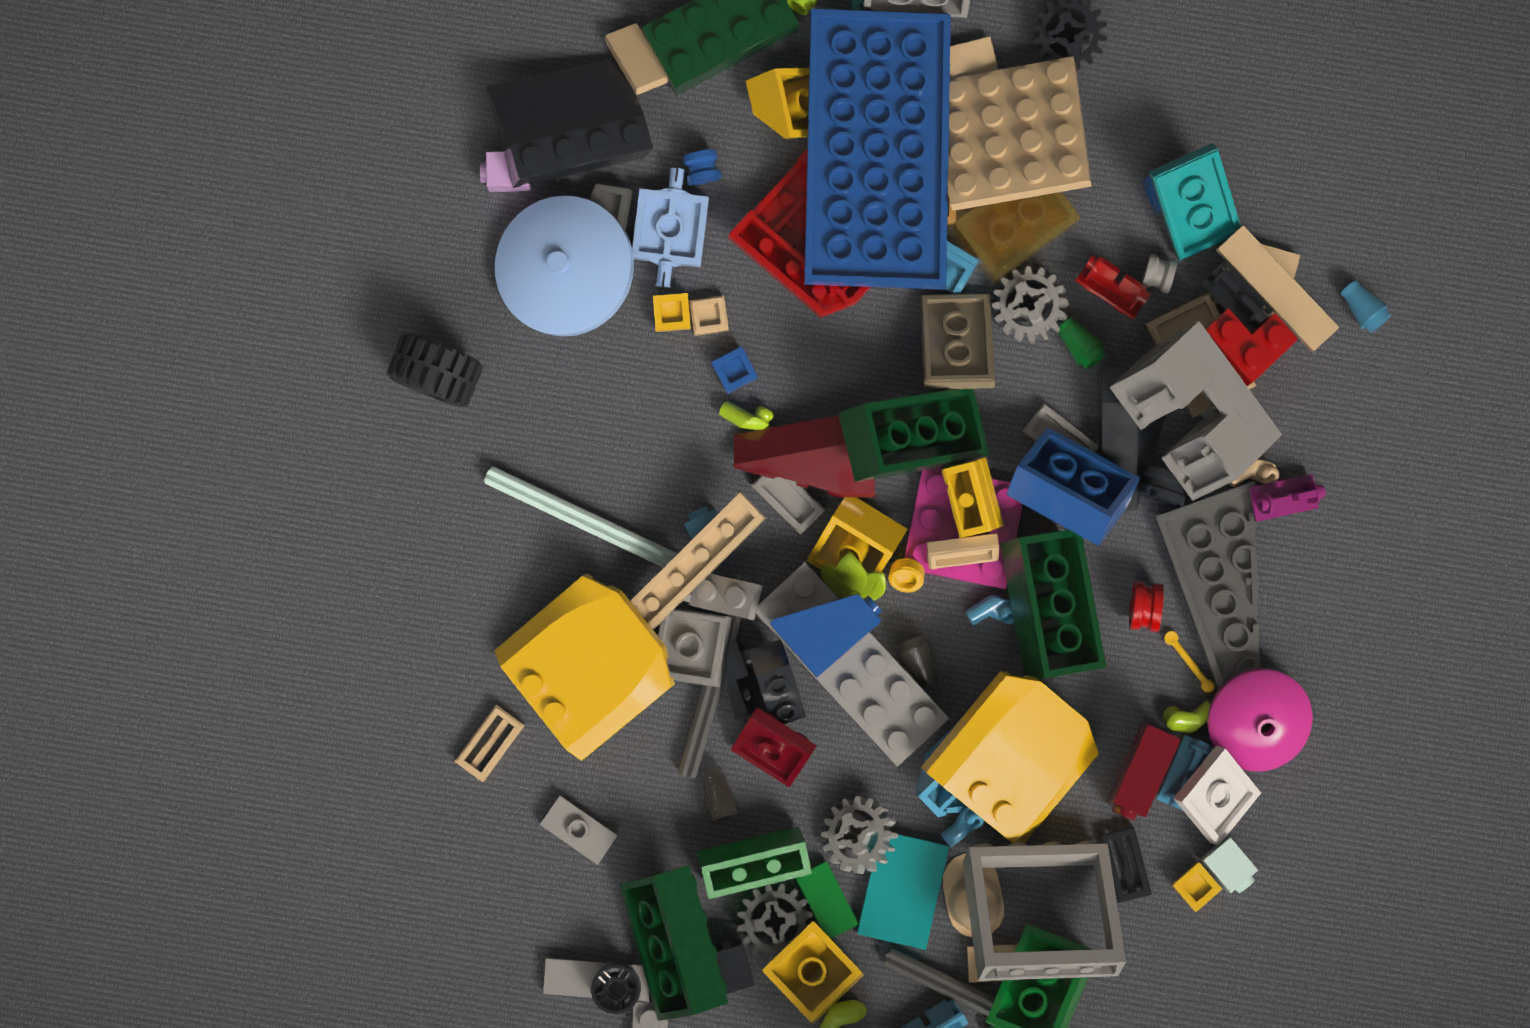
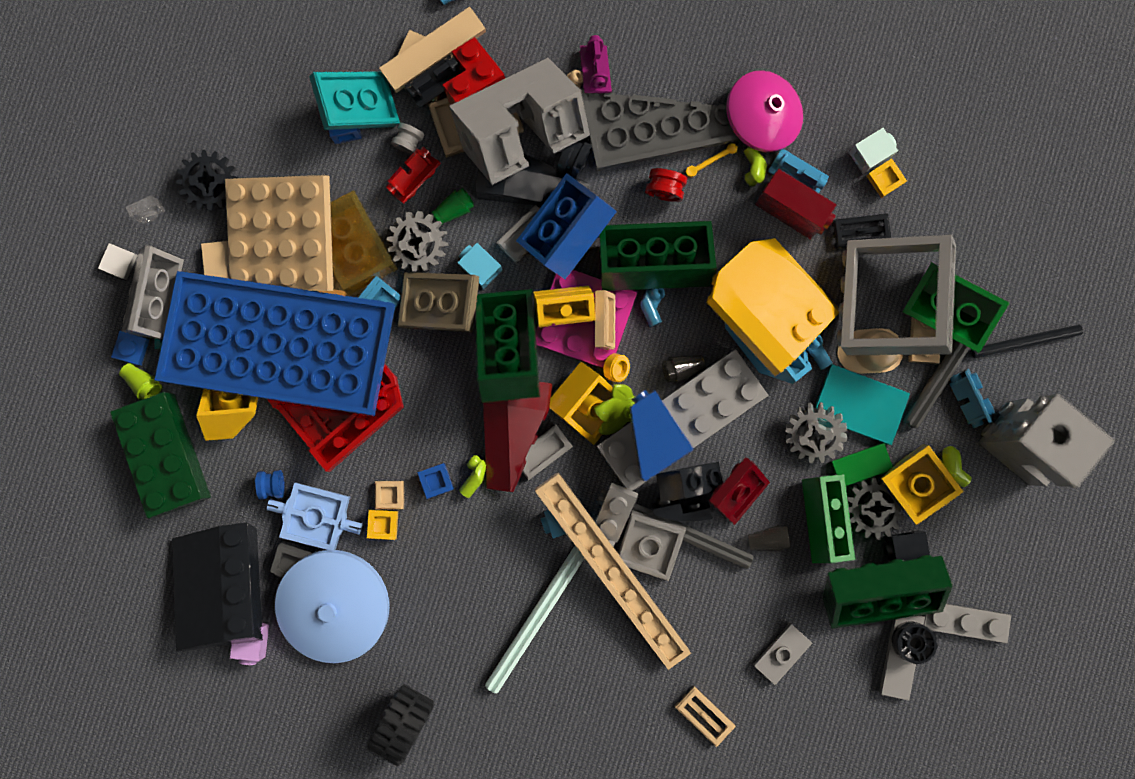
camera: 85 degrees left, 0 degrees up
(587, 664) = (654, 631): yellow wedge -> none
(636, 58) = (174, 525): tan tile -> none
(1011, 386) = (479, 263): none -> medium azure brick
(1217, 795) = (820, 150): white plate -> none

